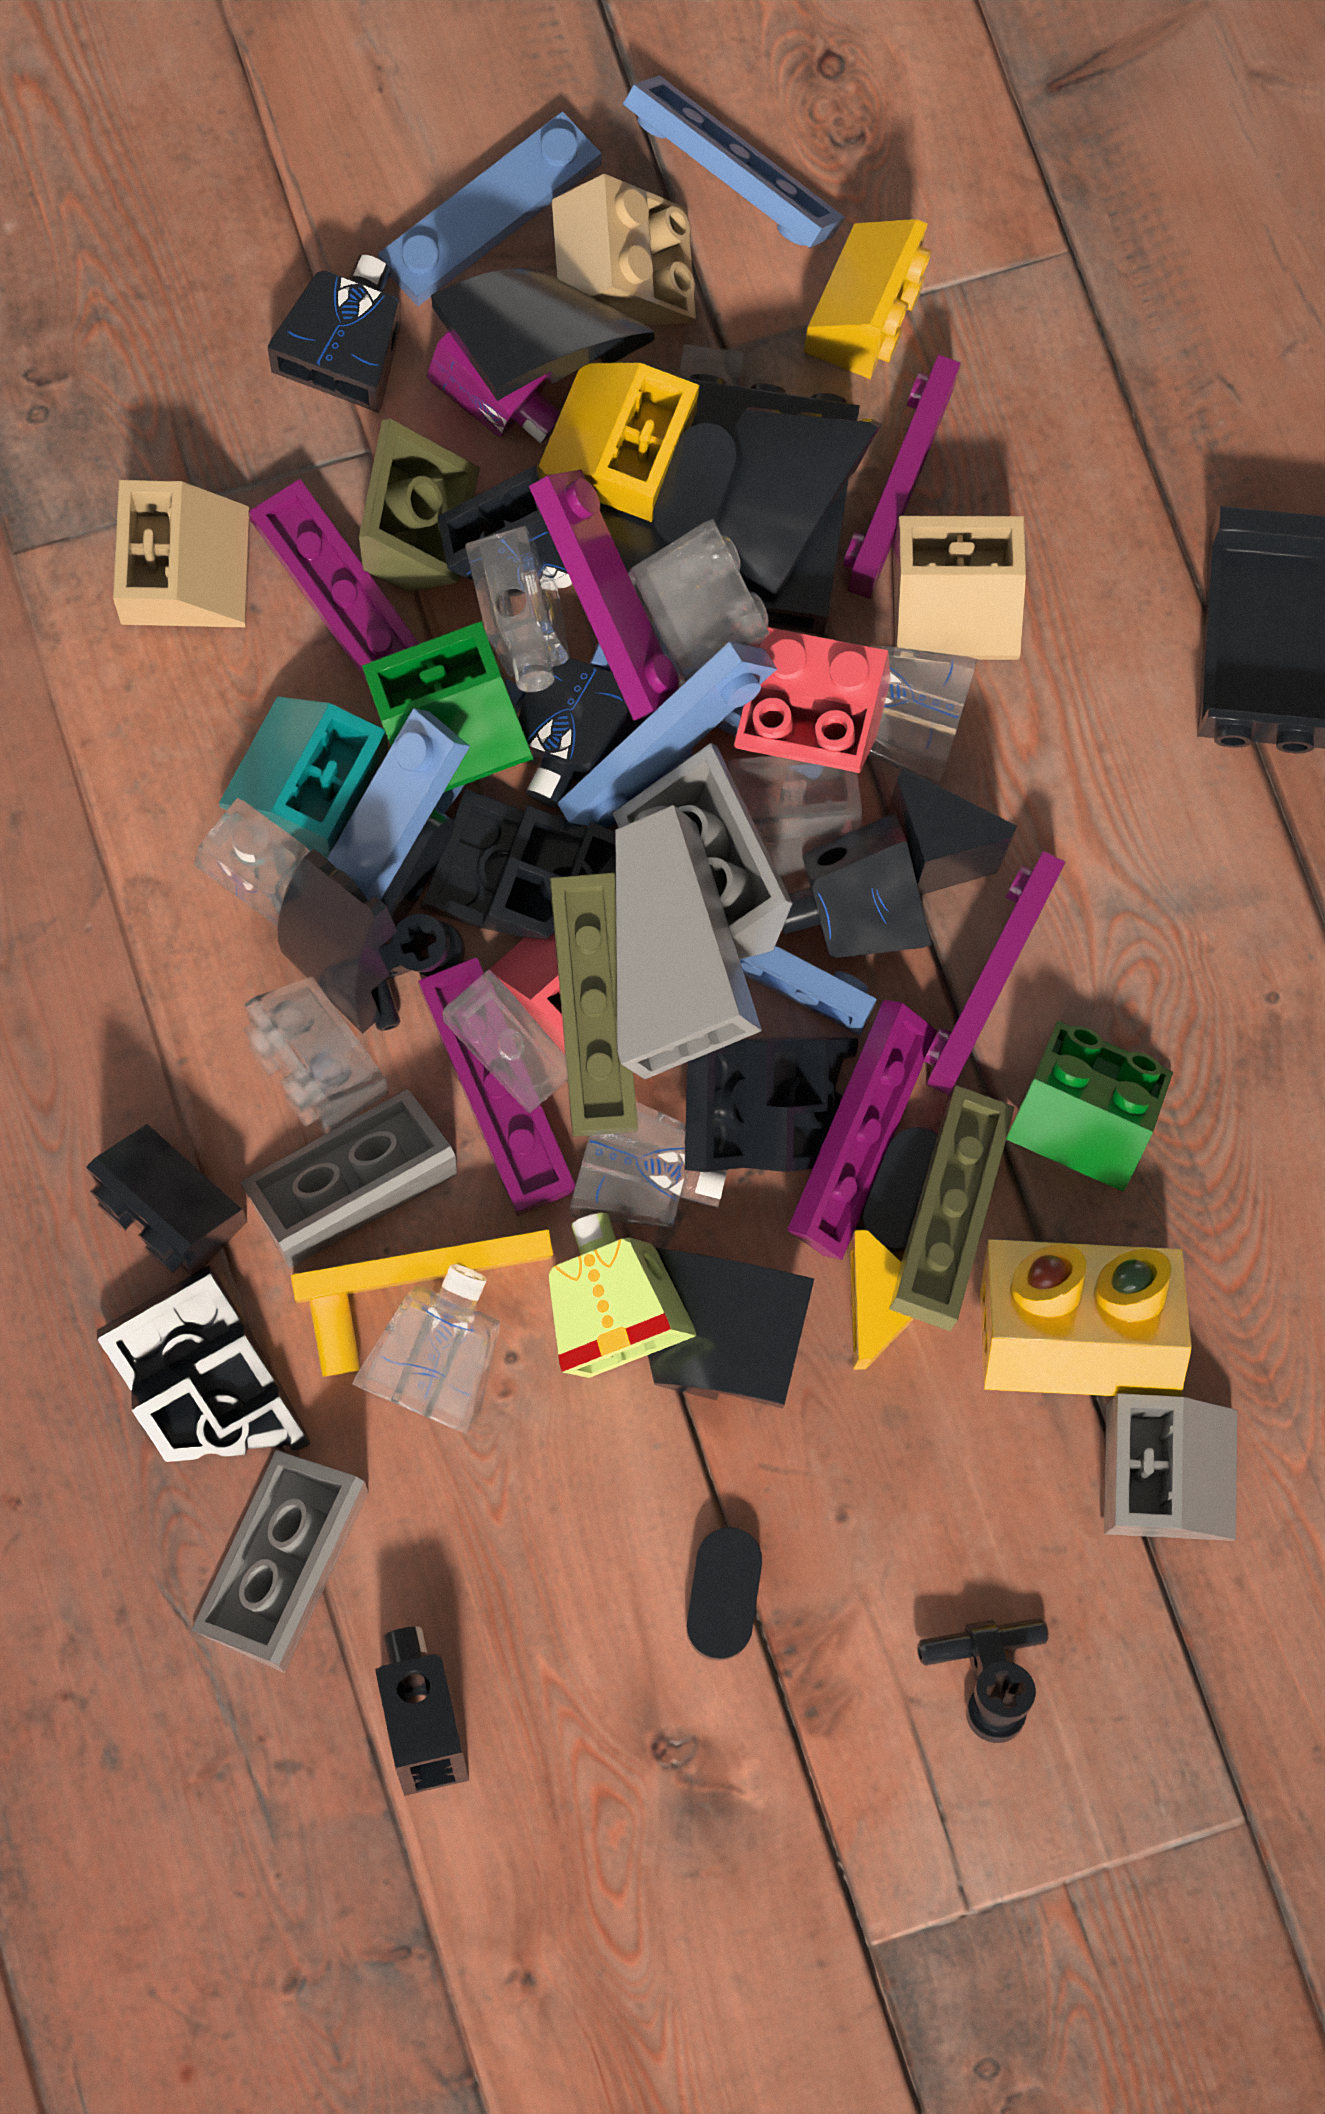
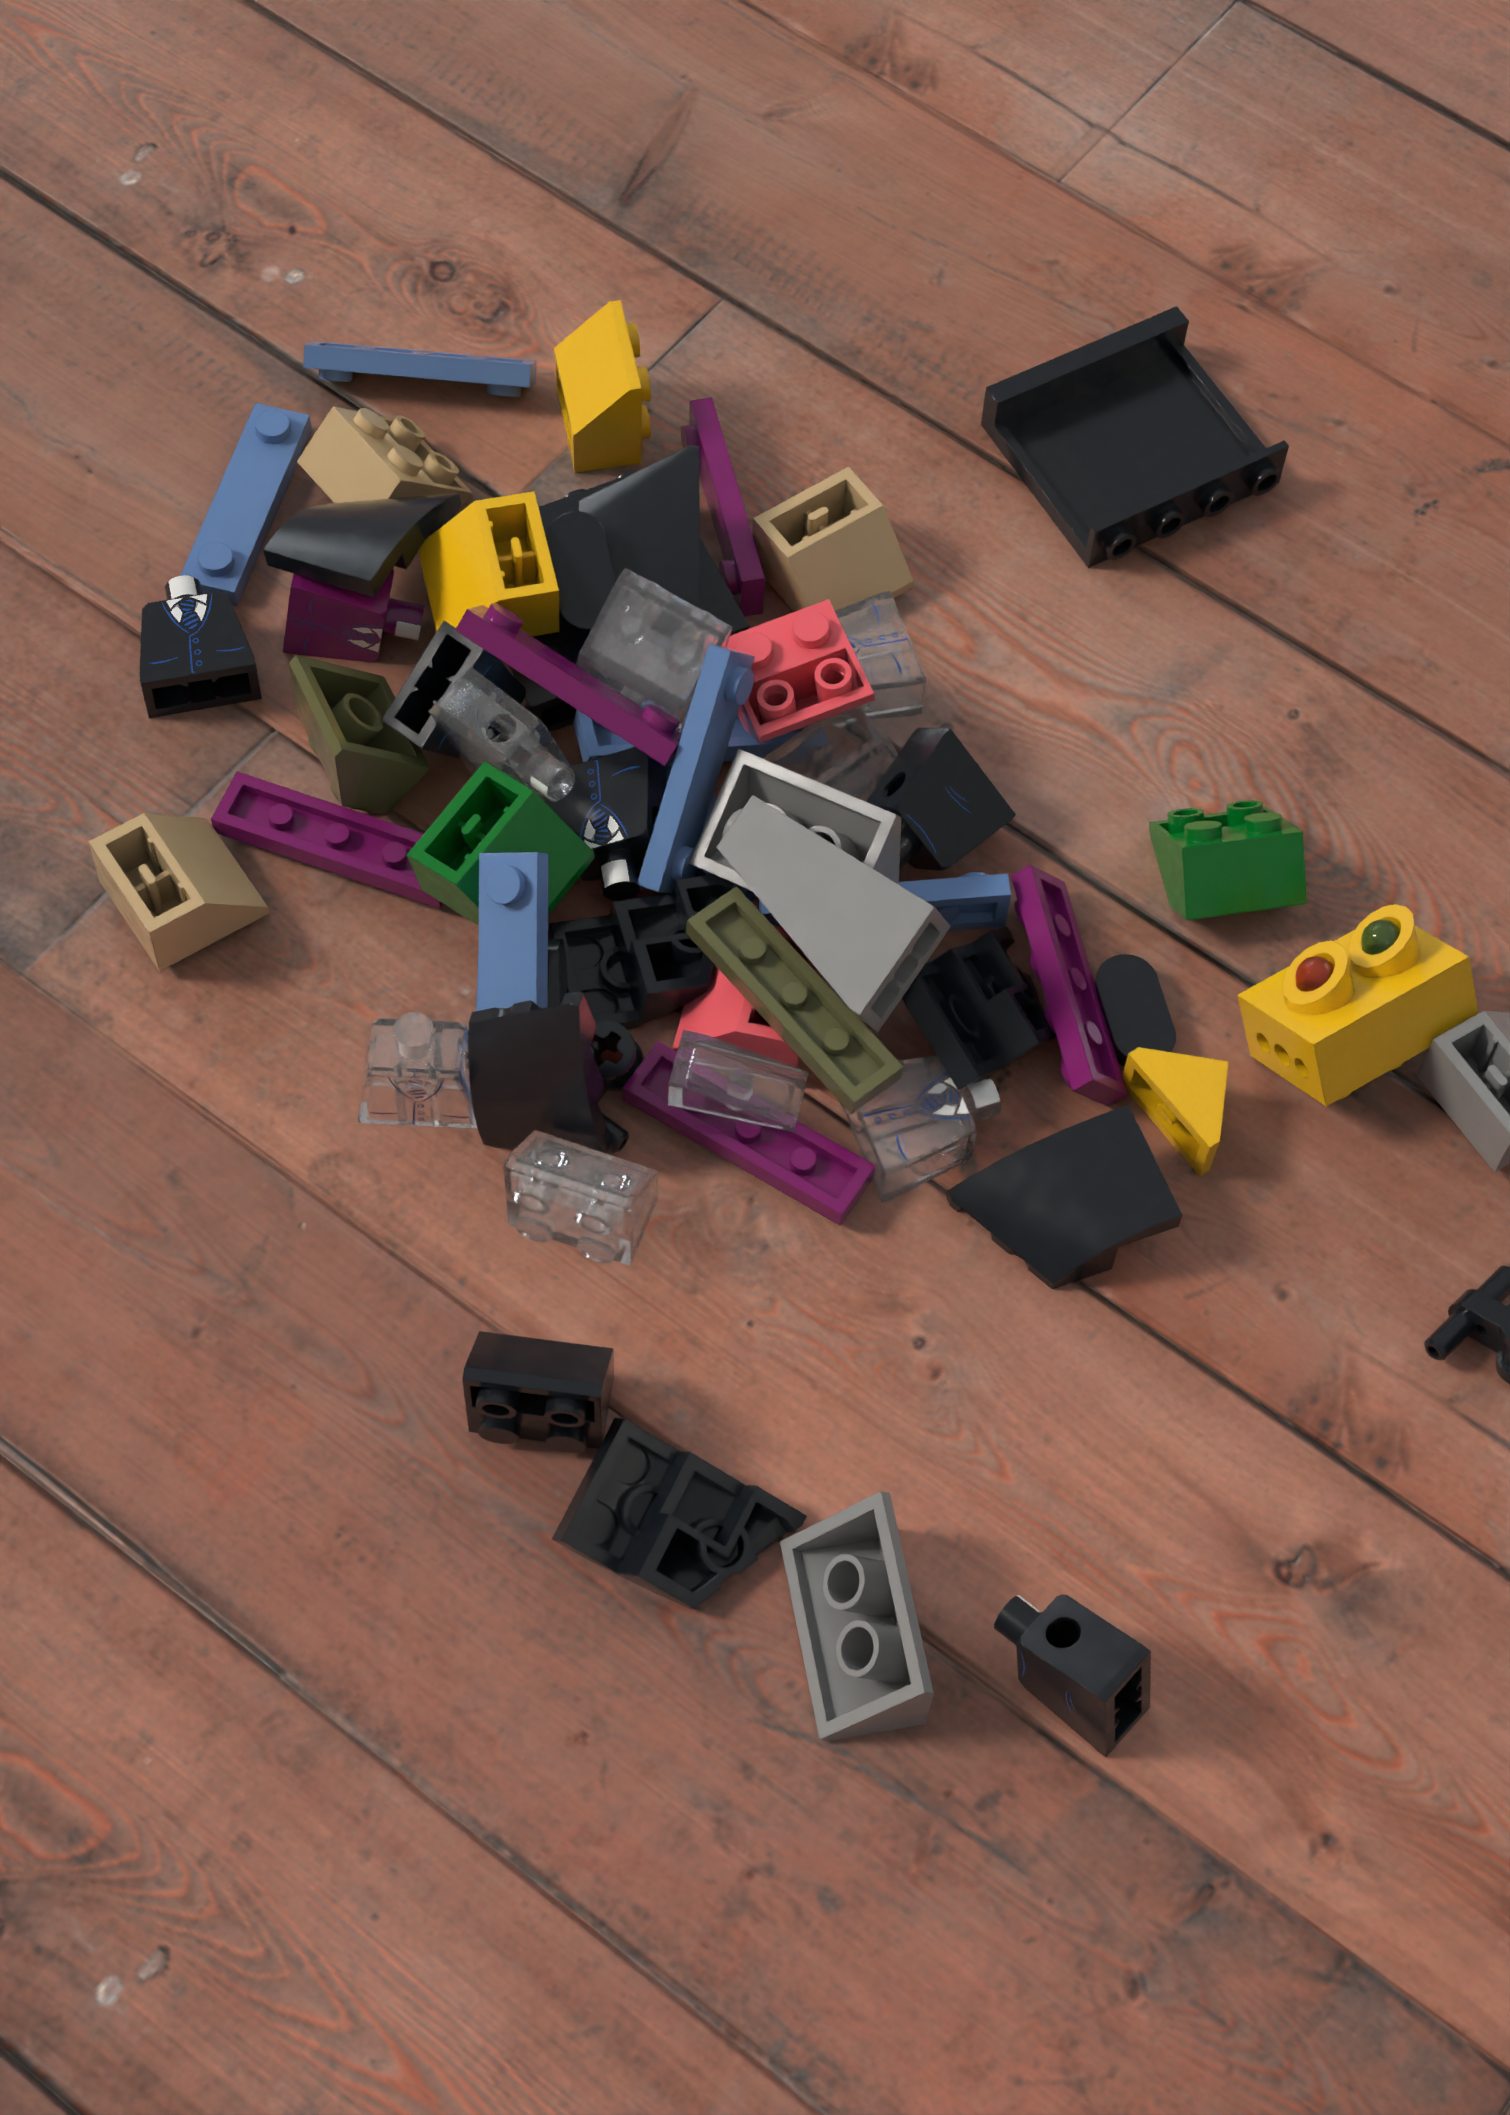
camera: 30 degrees left, 15 degrees down
(308, 769) = (404, 965): teal slope -> none
(329, 1288) = (730, 1371): yellow piece -> none
(350, 1177) = (681, 1277): light grey slope -> none
(436, 1352) = (862, 1361): clear torso -> none
(613, 1301) = (977, 1230): yellowish green torso -> none
(724, 1594) = (1240, 1412): black tile -> none
(946, 834) = (977, 707): black slope -> none
(952, 1208) = (1191, 992): olive plate -> none
(1029, 892) = (1091, 878): magenta plate -> none

